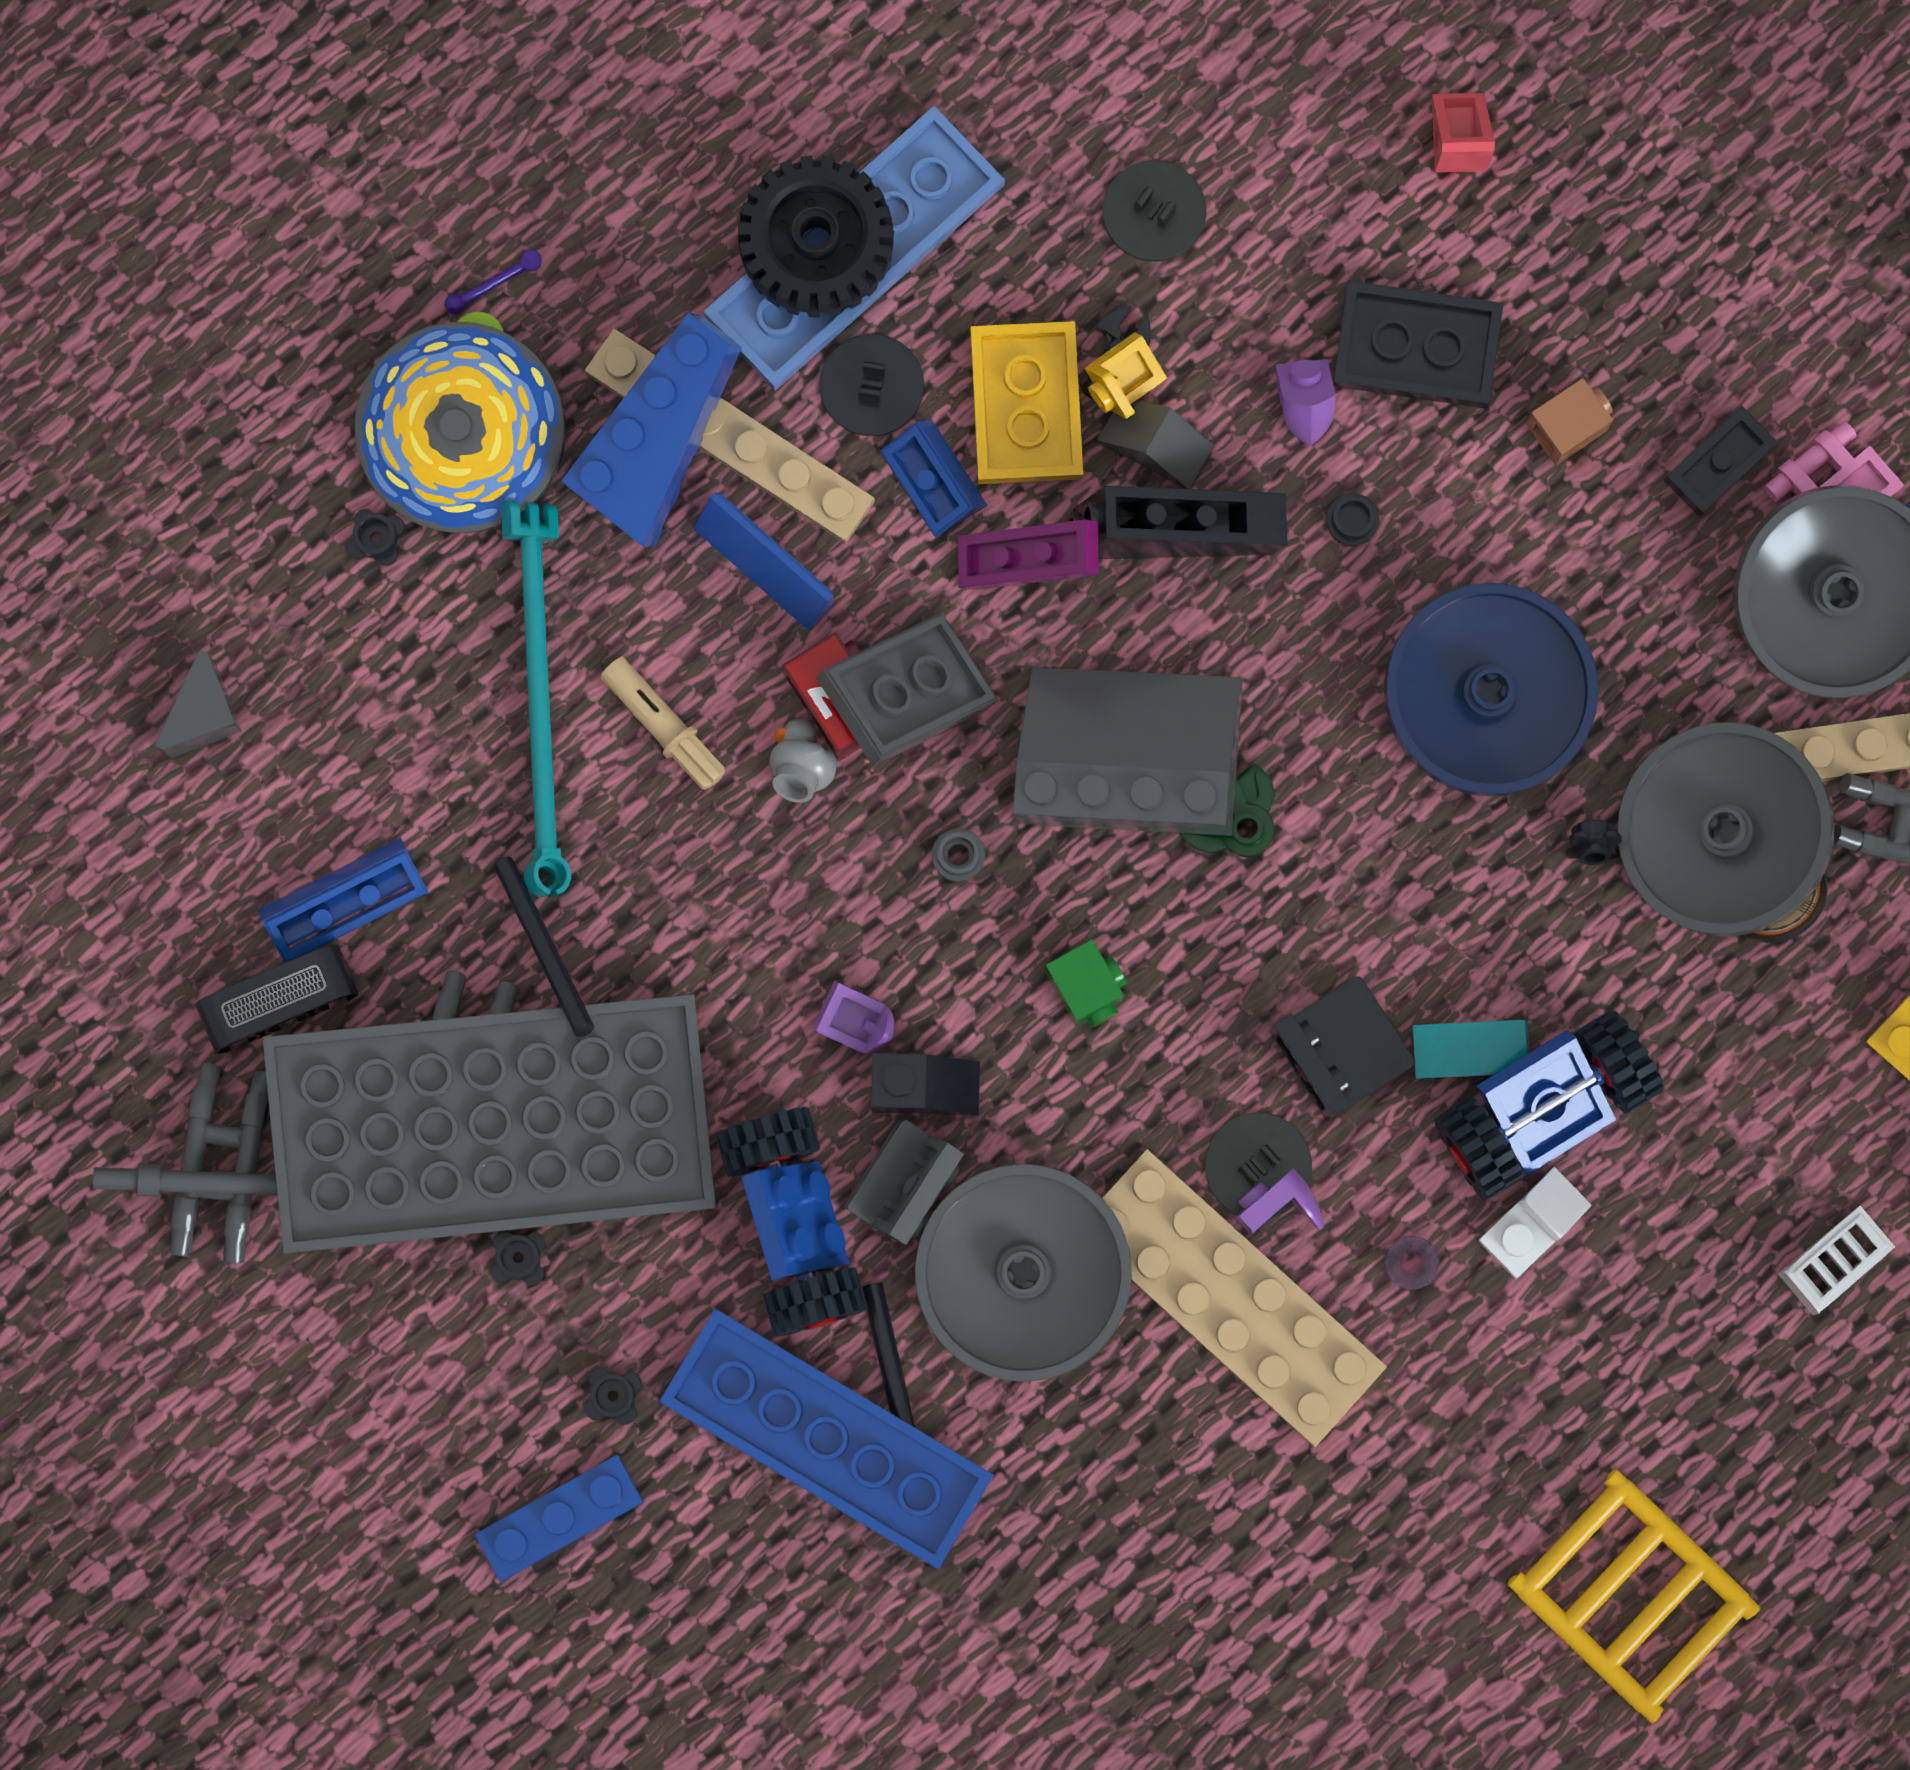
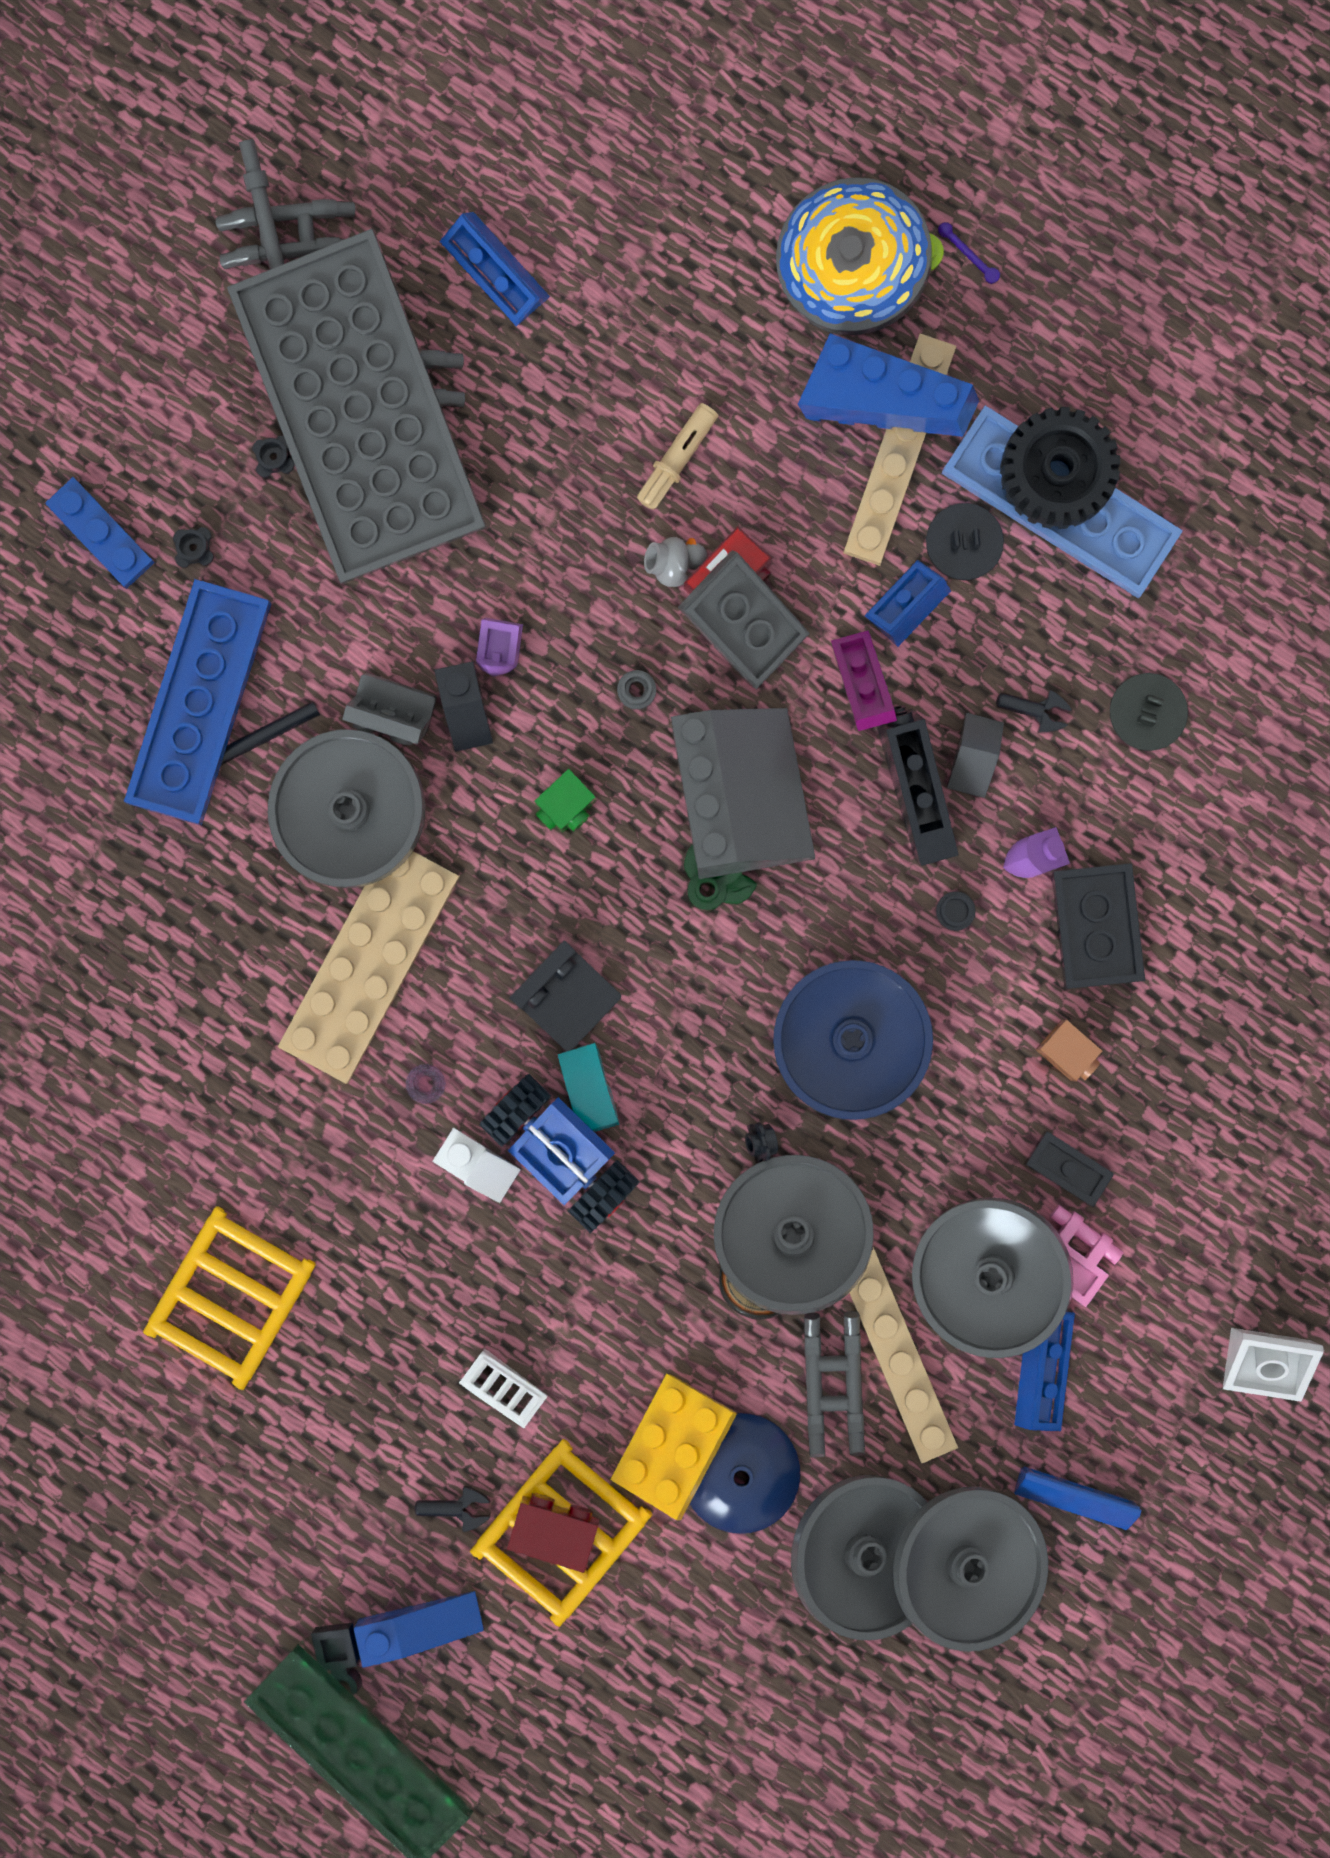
camera: 80 degrees right, 5 degrees up
(200, 711) = (602, 129): dark grey slope -> none
(276, 996) = (412, 238): black beam -> none
(365, 526) = (766, 210): black plate -> none
(532, 529) = (789, 327): teal hinge -> none
(544, 947) = (492, 412): black bar -> none
(764, 561) = (813, 497): blue slope -> none
(793, 1220) = (341, 638): plate -> none
(1026, 402) = (979, 654): yellow plate -> none
(1124, 375) = (1016, 717): yellow bracket -> none
(1252, 1151) = (468, 958): pearl dark grey piece -> none
(1264, 1202) = (440, 967): medium lavender plate -> none
(1461, 133) = (1267, 919): coral slope -> none

